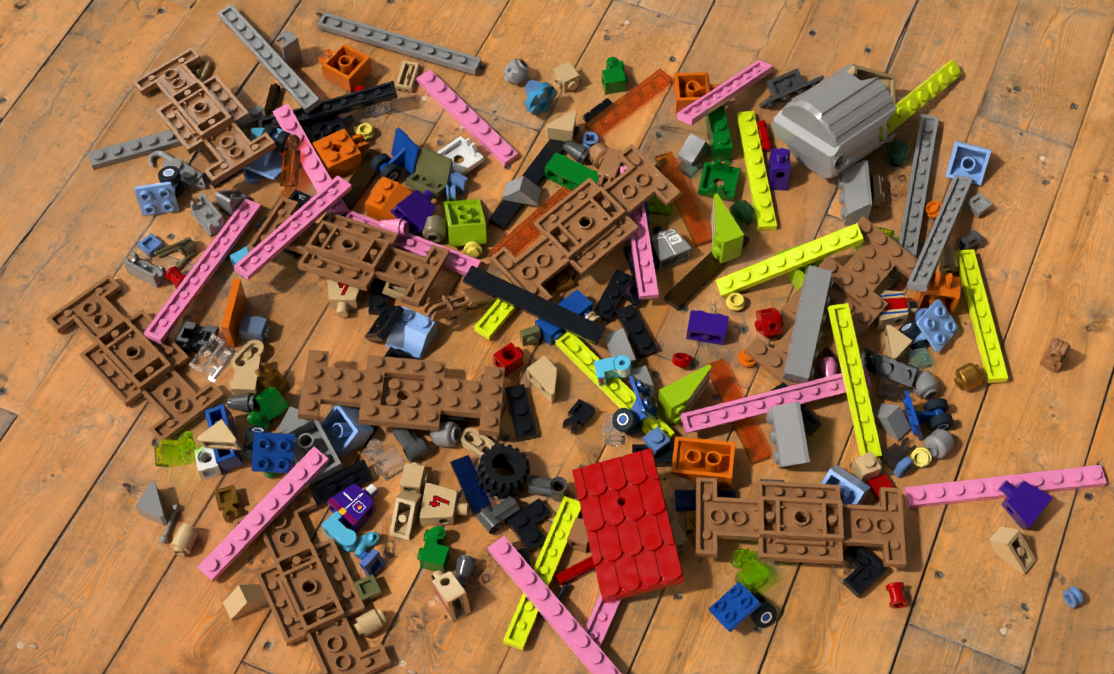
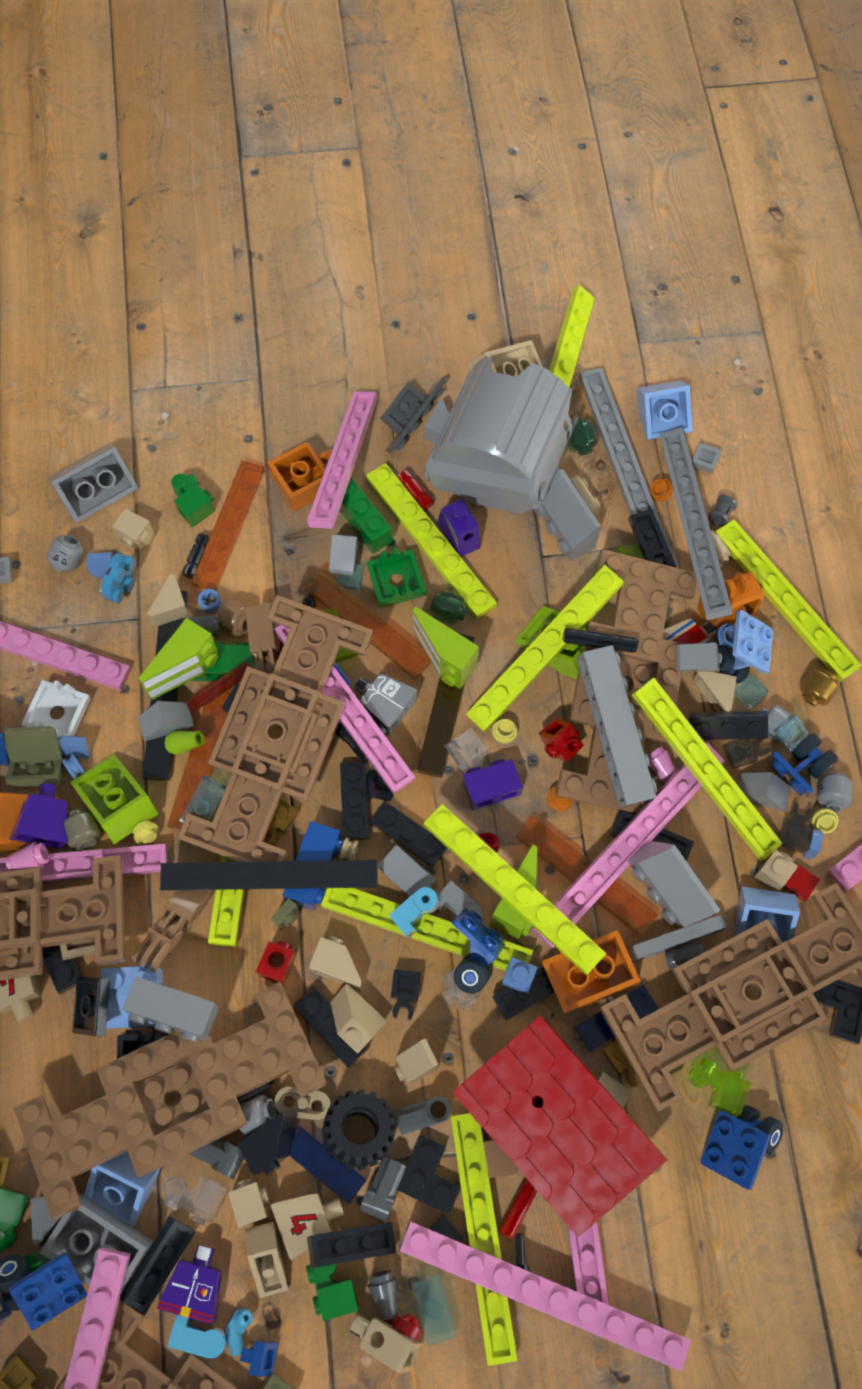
camera: 30 degrees left, 10 degrees up
(430, 343) = (170, 1010): none -> light grey brick
(445, 451) = (269, 1144): none -> black slope
(460, 529) = (351, 1245): none -> black plate
(470, 594) = (408, 1326): none -> red tile
(488, 595) = (433, 1310): none -> clear light blue plate
(520, 243) = (205, 799): none -> clear light blue plate
(525, 209) = (183, 741): none -> lime cone
(538, 413) = (355, 1018): none -> tan slope
(550, 157) = (180, 660): none -> lime slope
(557, 40) = (93, 482): none -> light grey slope
(559, 189) = (217, 688): none -> clear red axle
(561, 454) = (416, 1063): none -> tan slope
(681, 382) = (515, 890): none -> neon yellow plate
(703, 297) = (467, 749): none -> clear brick
(759, 471) = (676, 938): none -> light grey beam
(819, 262) = (599, 640): none -> black axle
(892, 314) = (698, 657): none -> light grey slope
(905, 230) = (650, 538): none -> black plate
(929, 390) = (791, 732): none -> clear light blue tile

